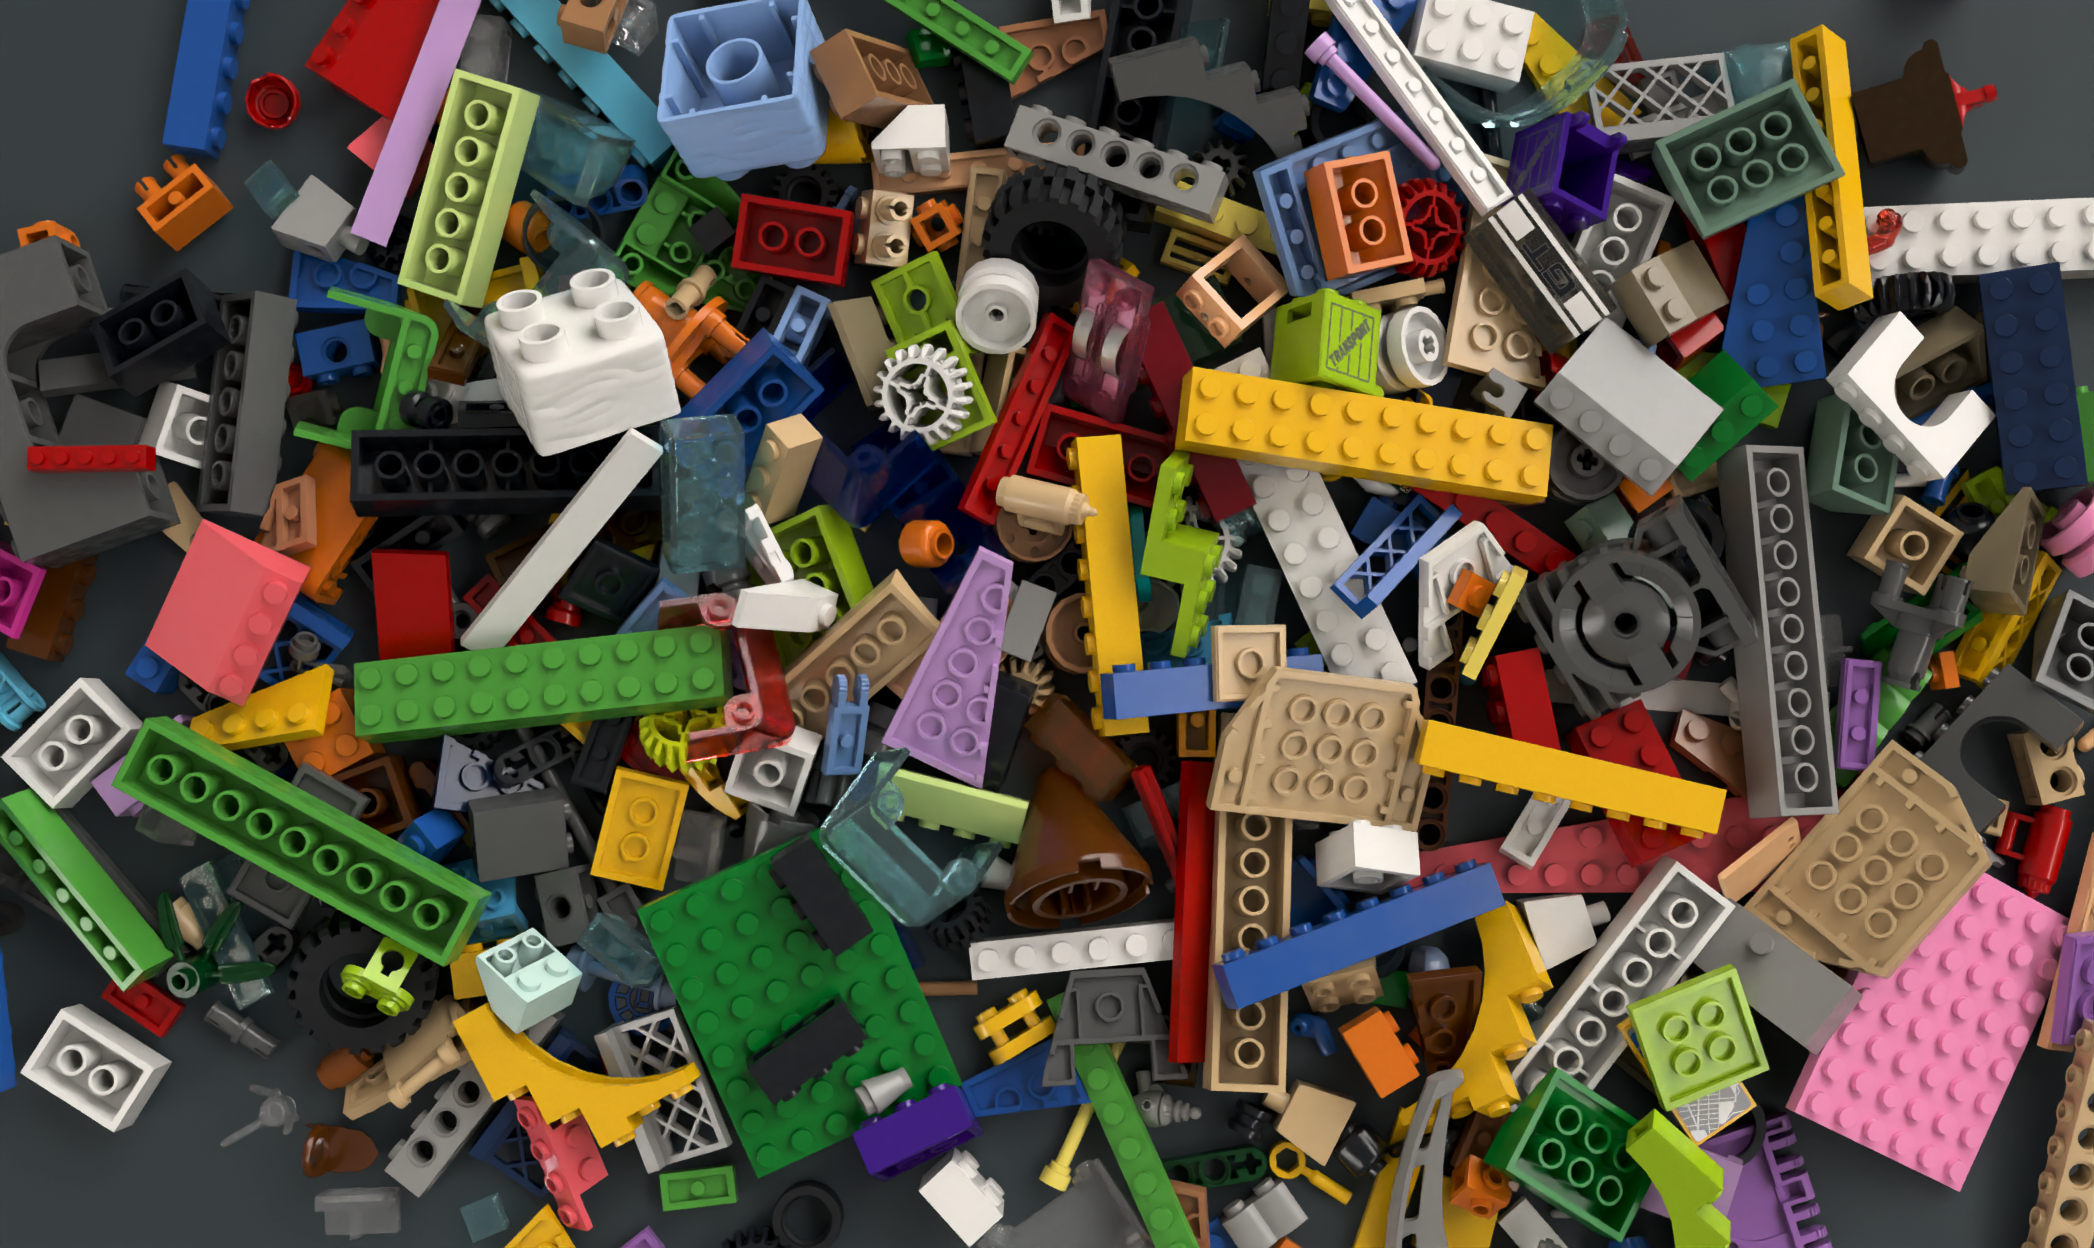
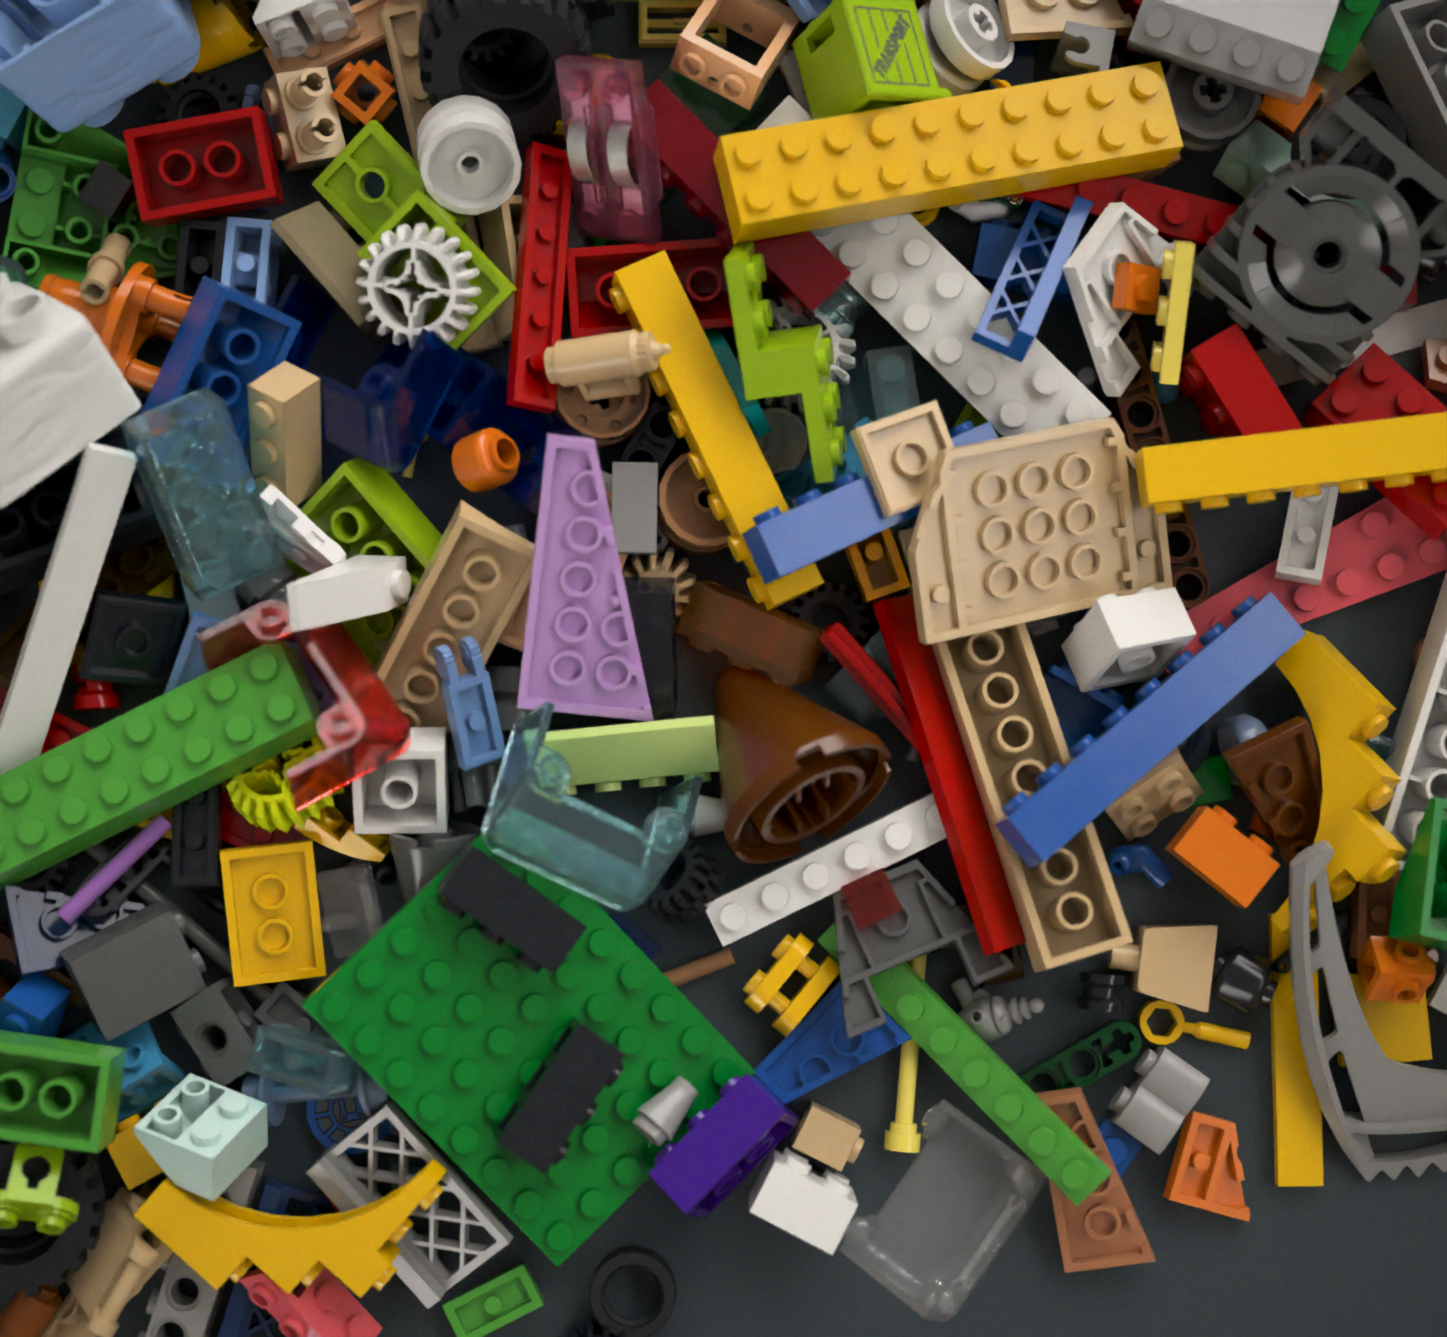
camera: 20 degrees left, 0 degrees up
(532, 752) = (114, 869): none -> medium lavender bar
(999, 1154) = (828, 1136): none -> tan brick
(1098, 985) = (871, 899): none -> clear red tile
(1562, 924) = (1379, 635): white torso -> none

